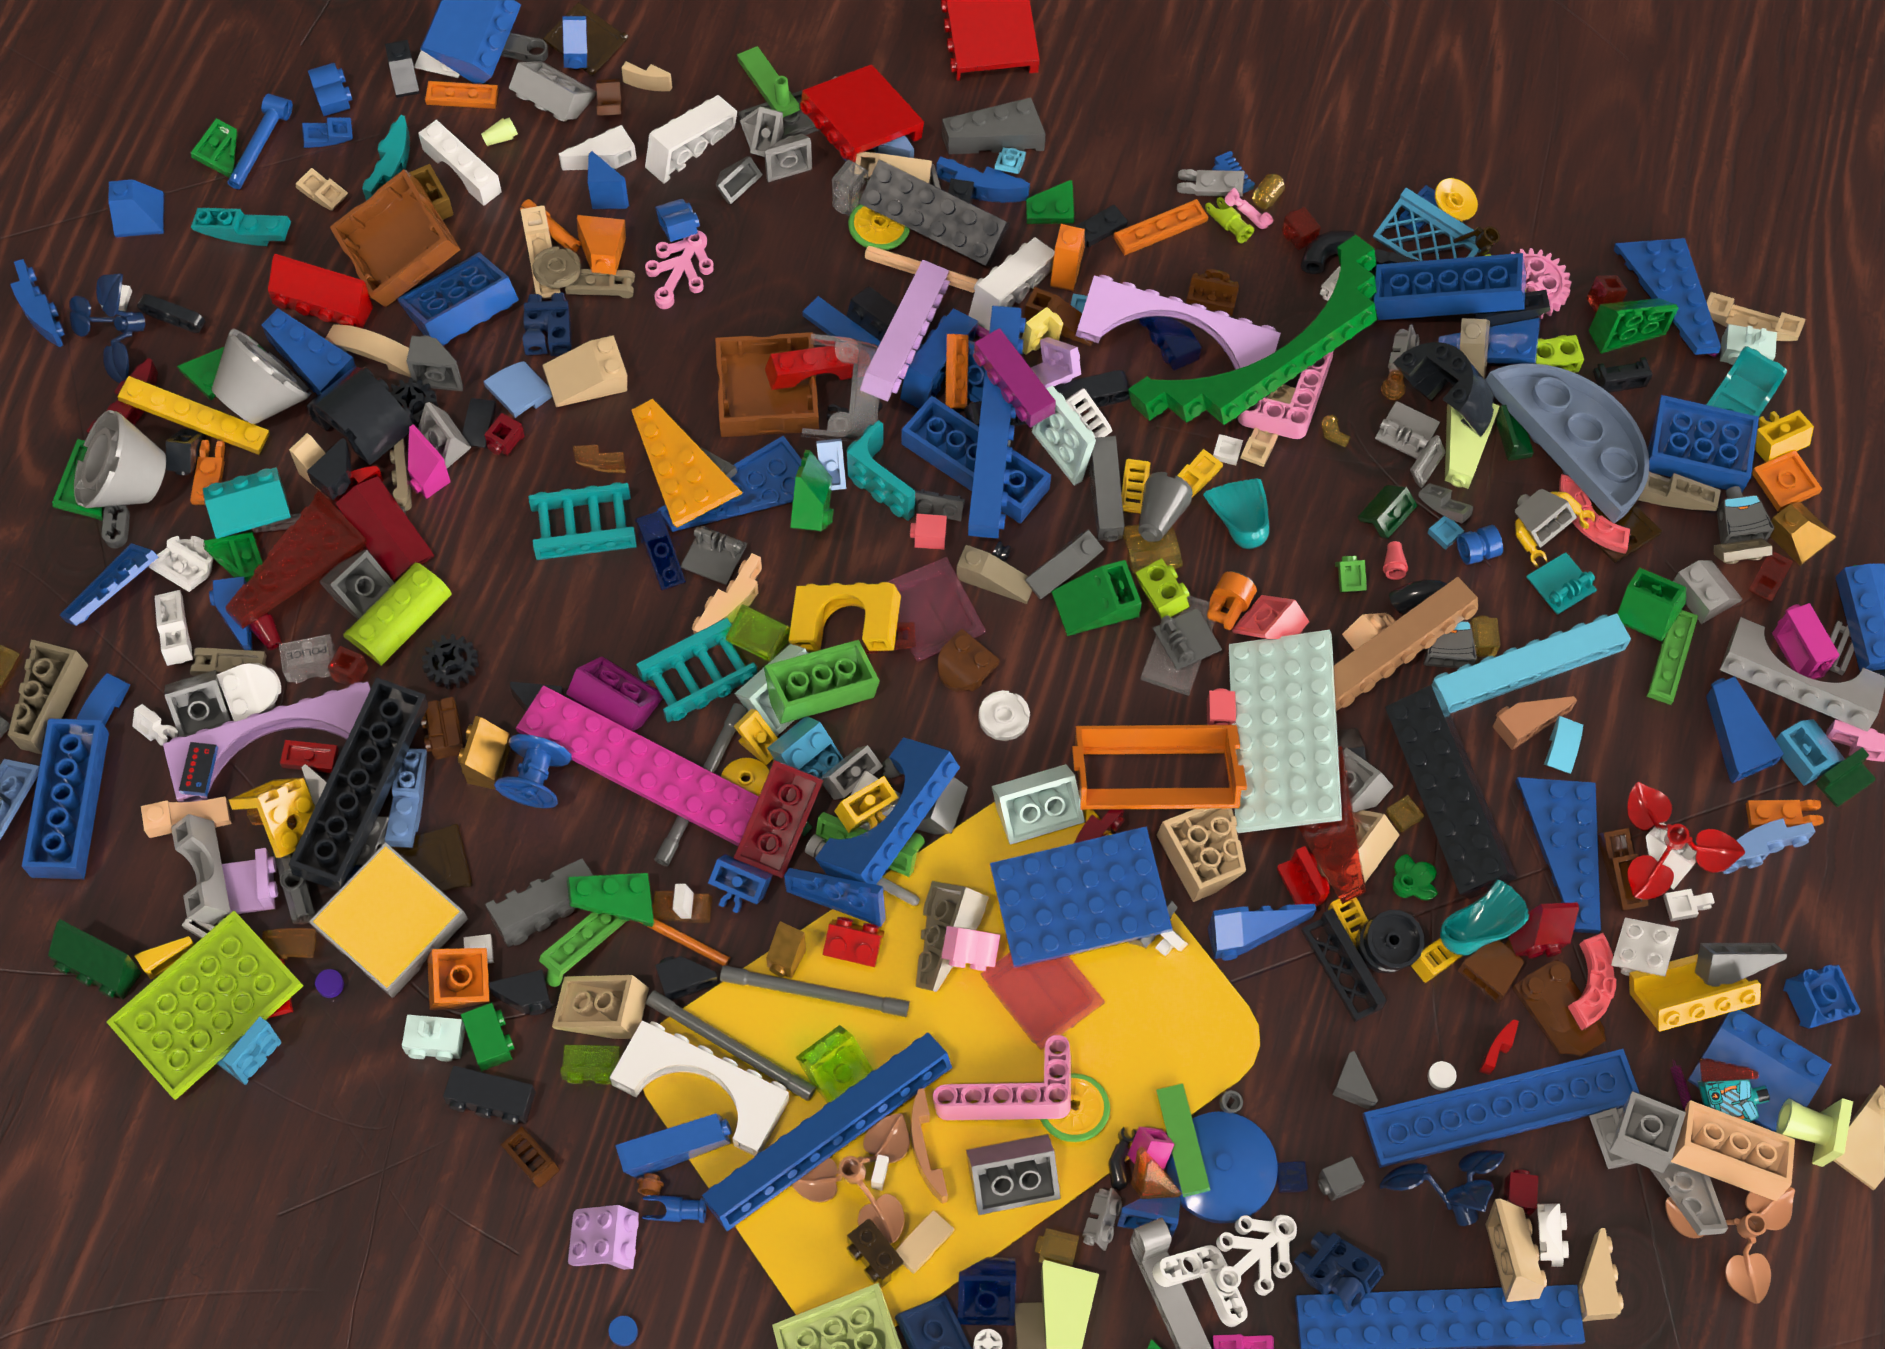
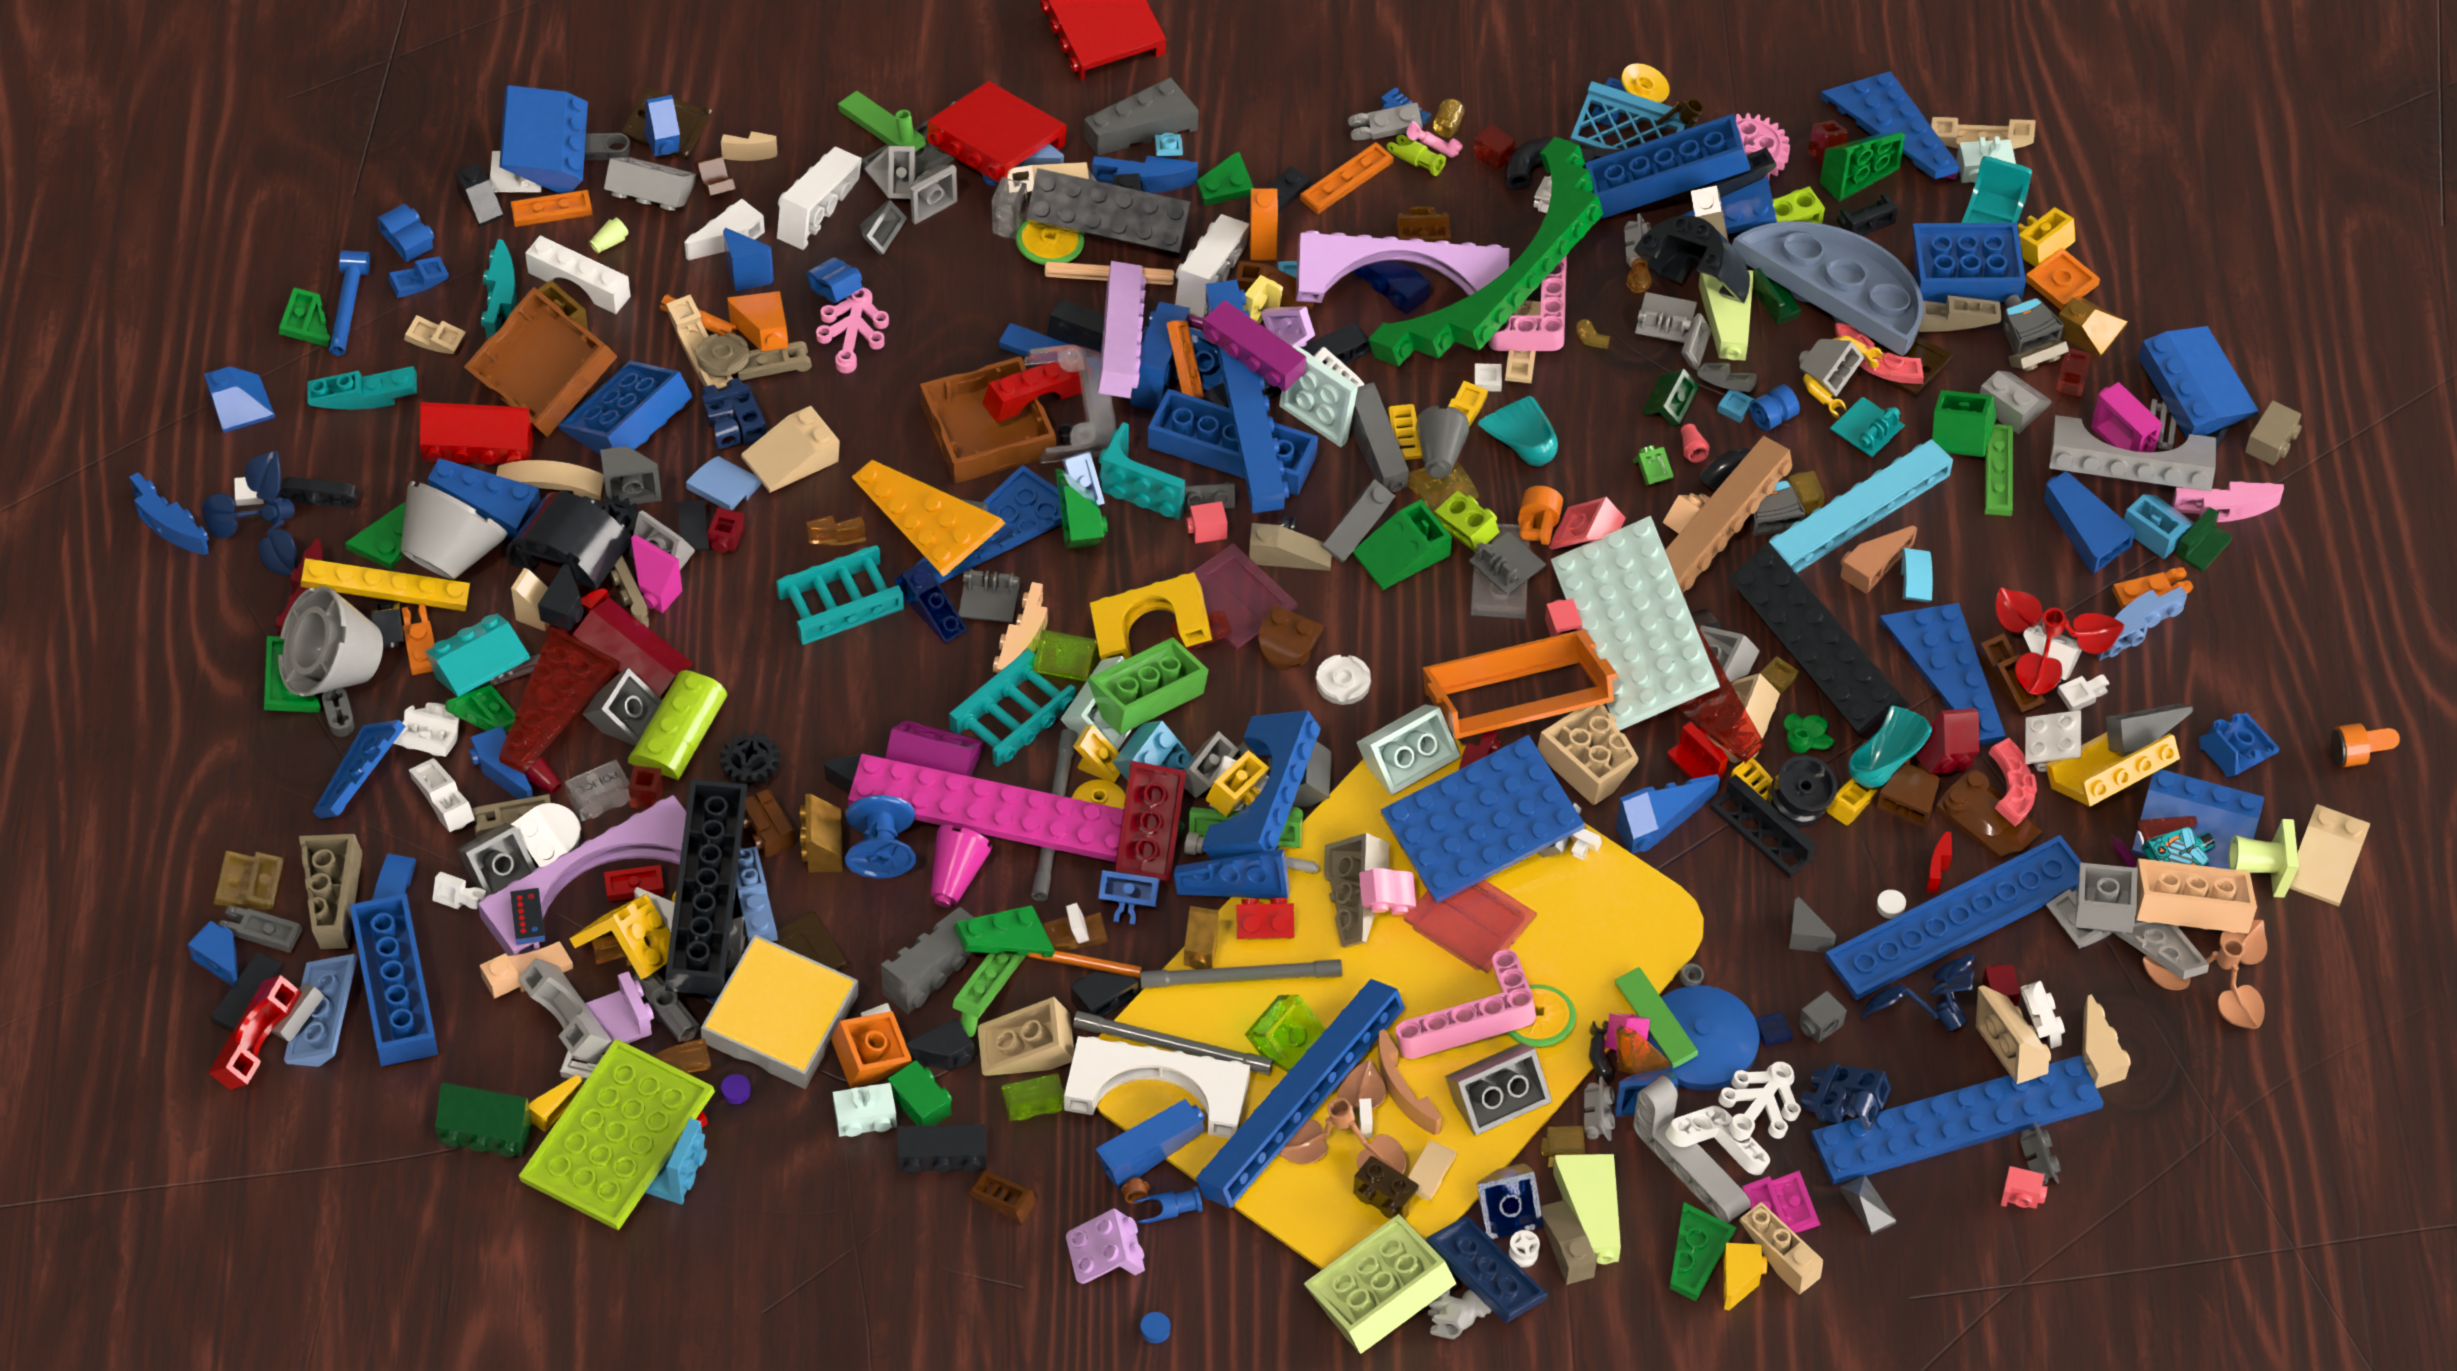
camera: 15 degrees left, 10 degrees down
(593, 814) = (956, 863): none -> dark pink cone

